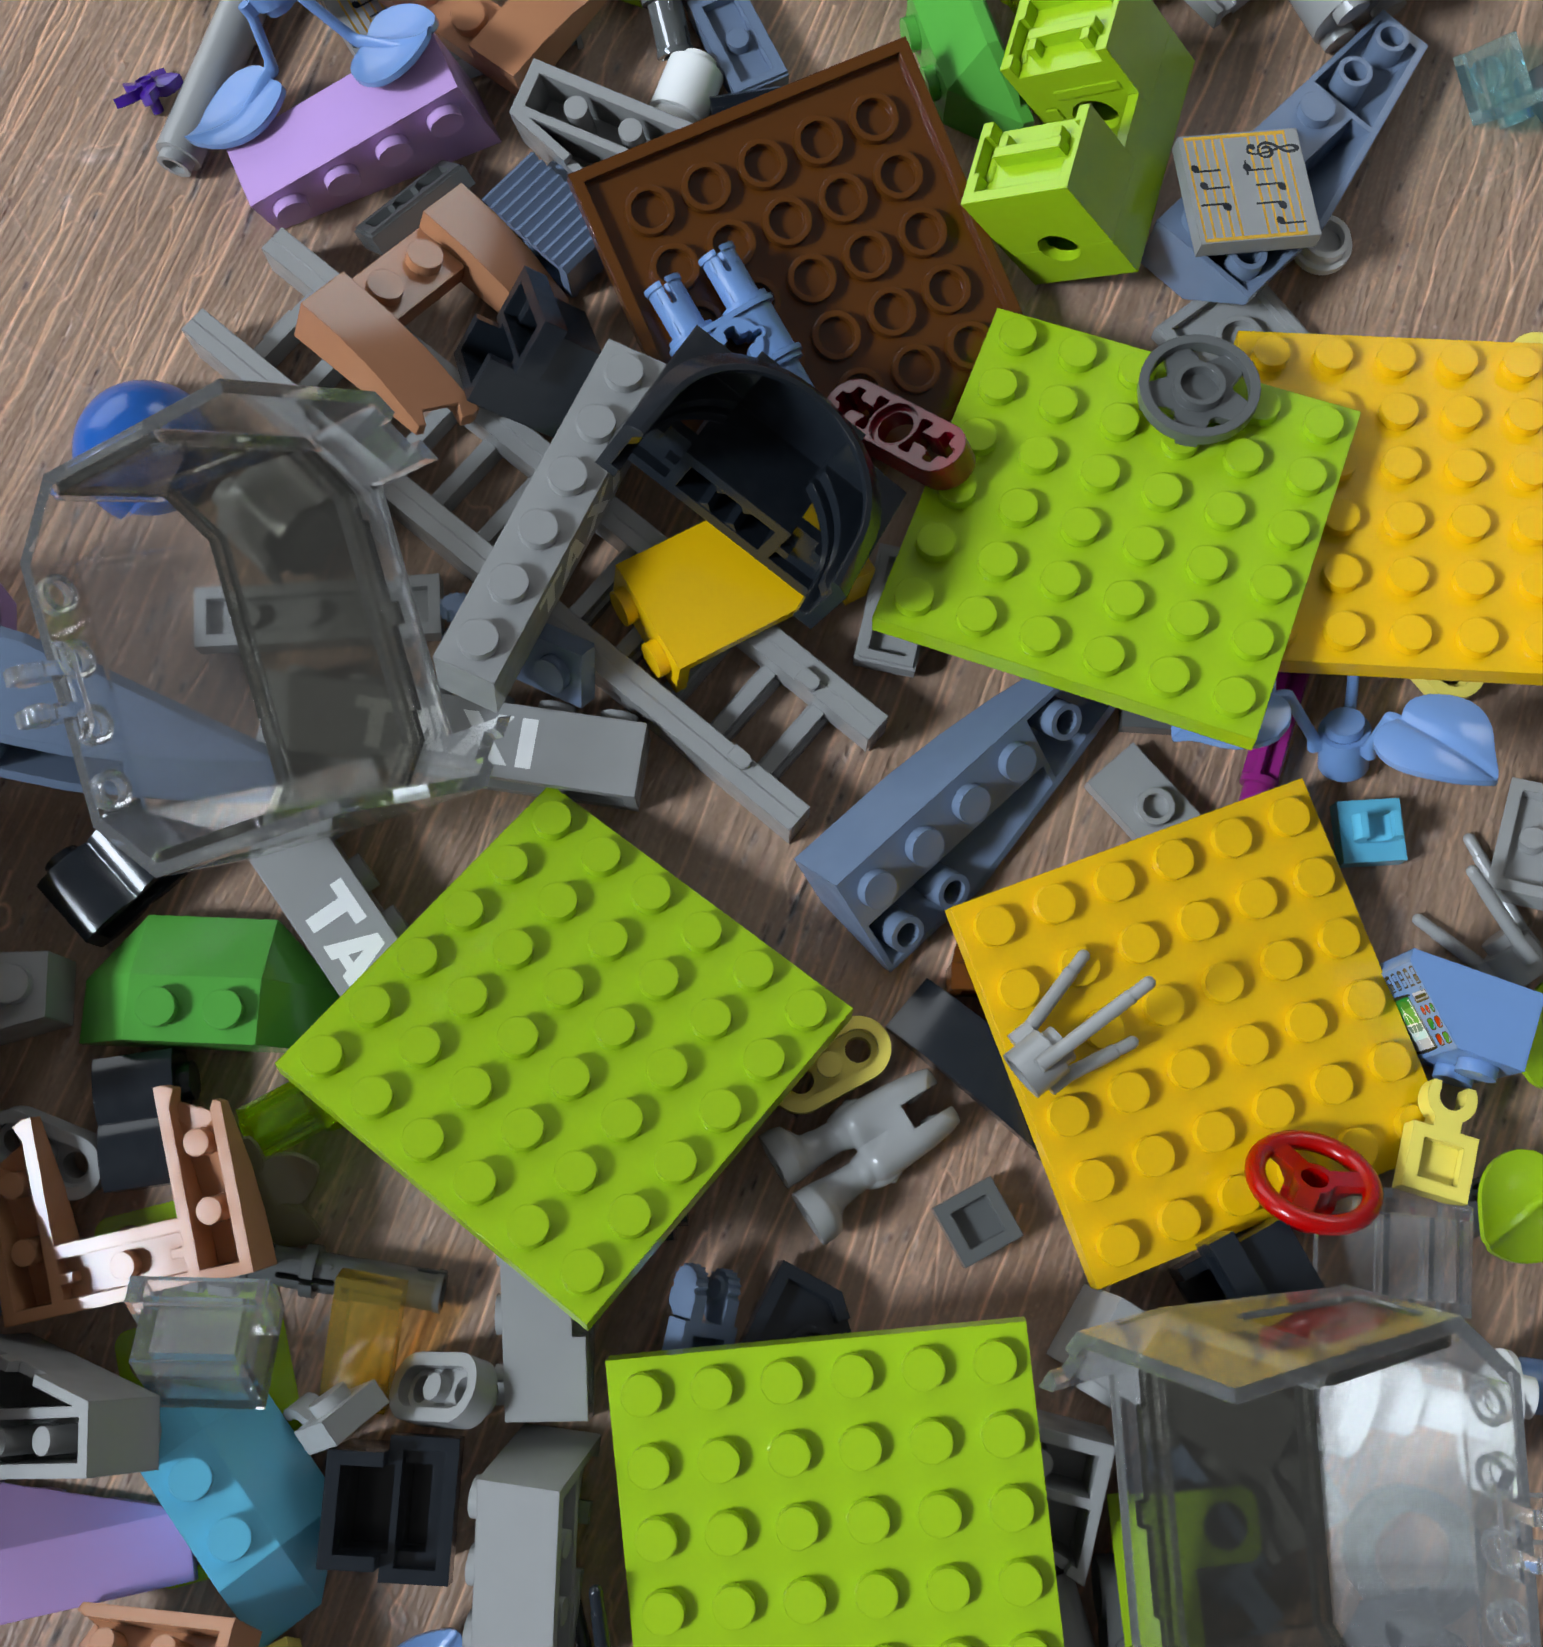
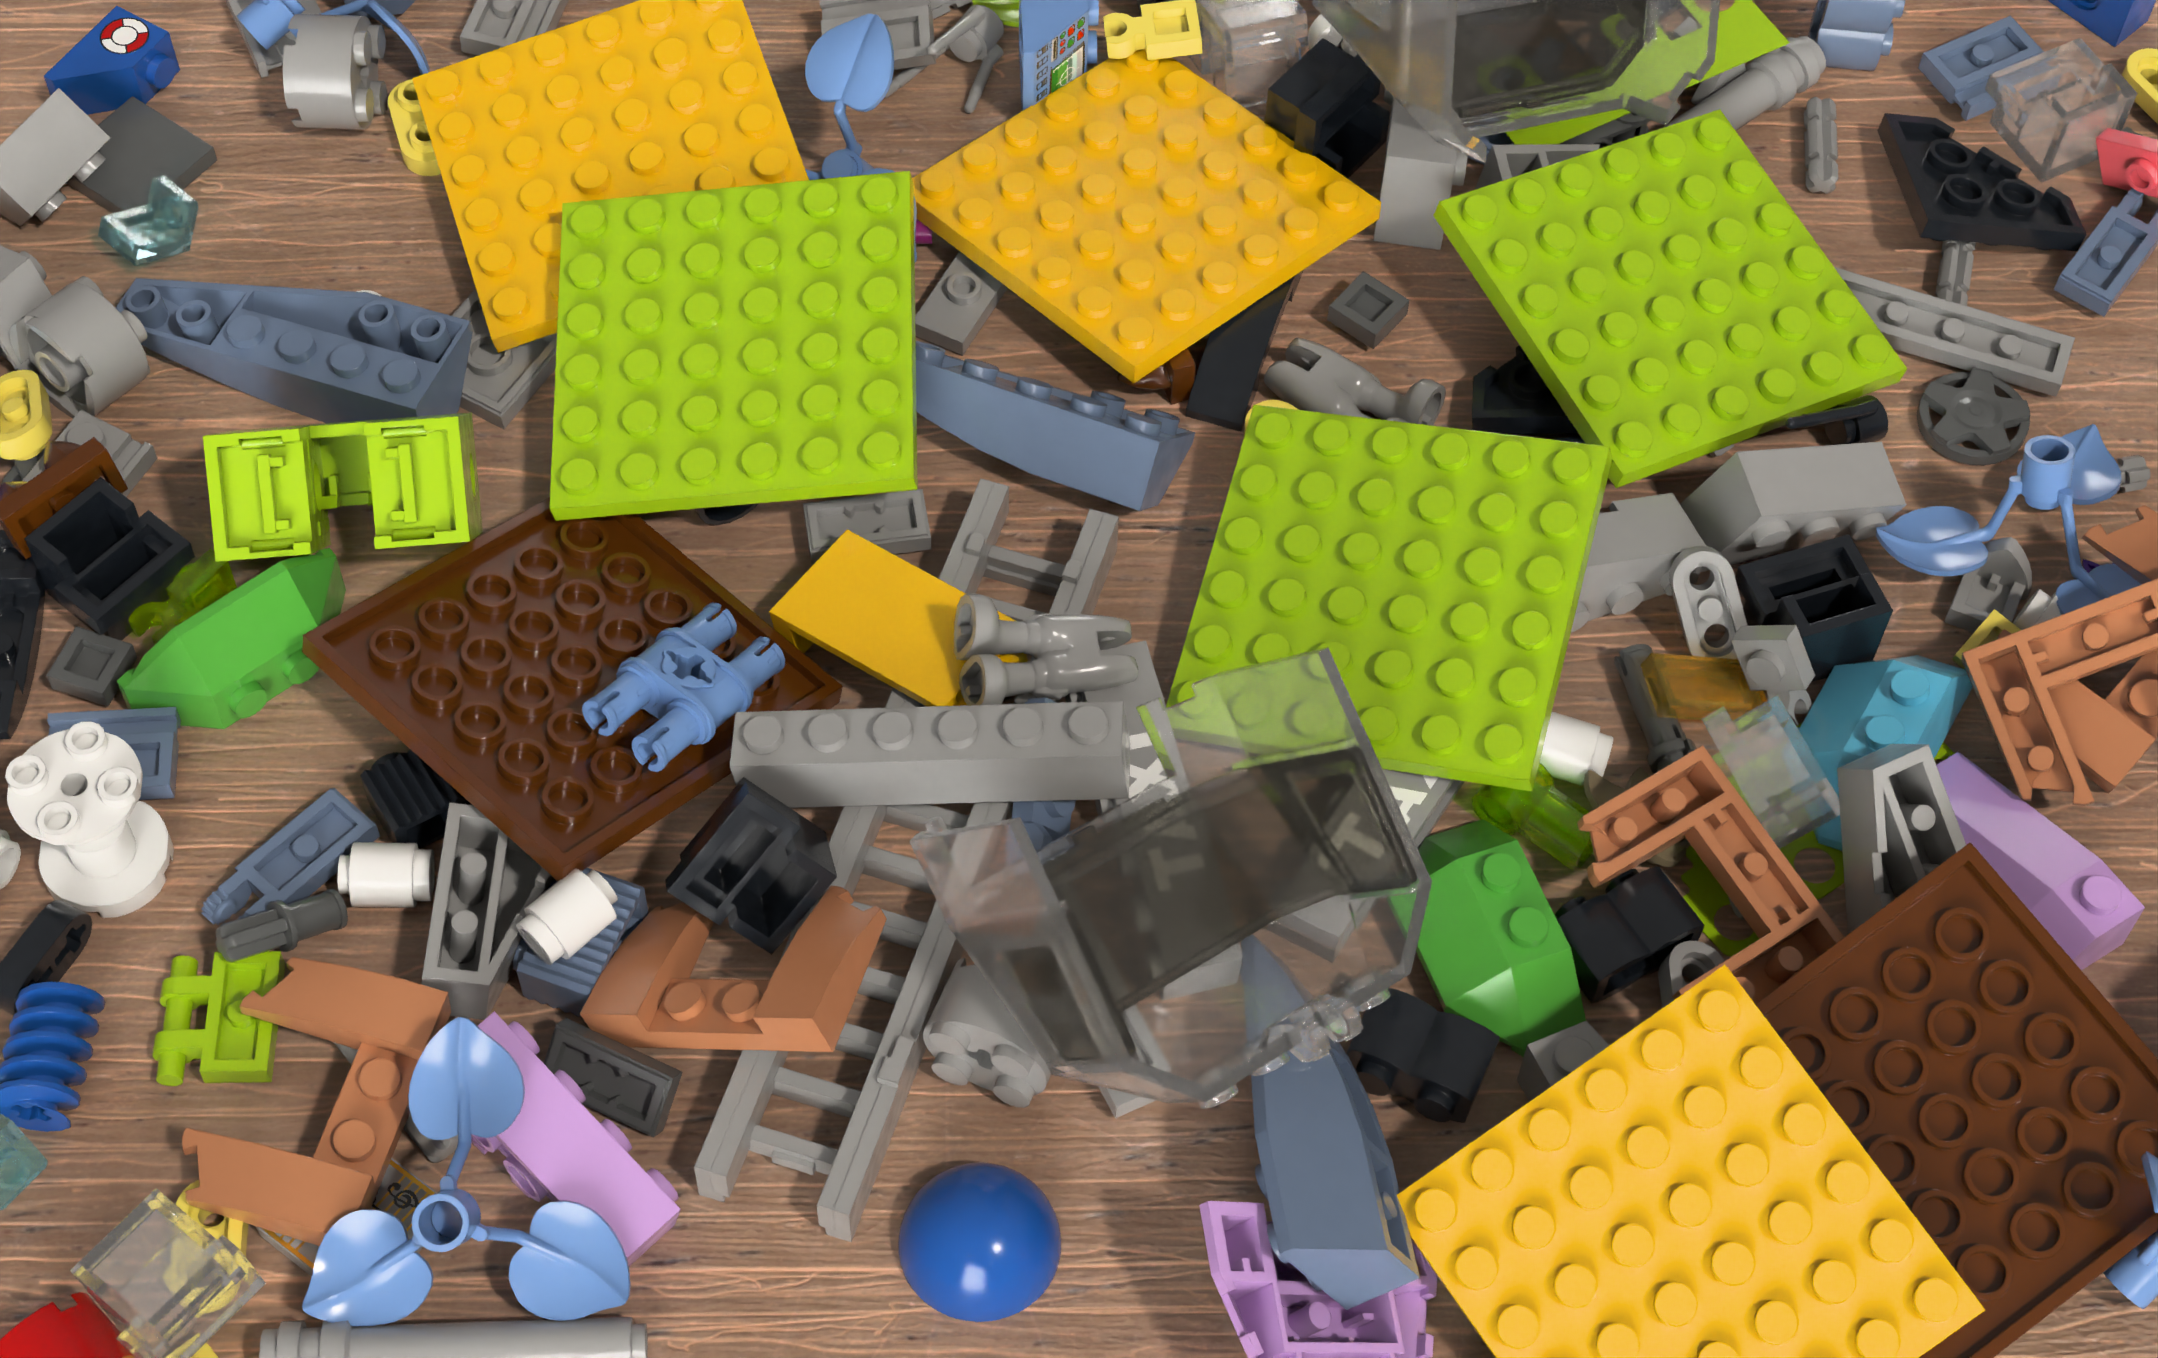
camera: 115 degrees left, 20 degrees down
(355, 1177) = (1574, 749): none -> white brick
(541, 186) = (568, 915): none -> white brick
(621, 690) = (1063, 650): none -> light grey piece
(759, 464) = (824, 607): black piece -> none
(909, 455) = (747, 488): beam -> none
(1044, 1057) = (1228, 255): light grey plant -> none
(1198, 390) = (594, 310): dark grey wheel -> none
(1246, 192) = (369, 341): light grey tile -> none
(1310, 1189) = (1238, 84): red piece -> none
(1368, 832) = (910, 146): medium azure tile -> none

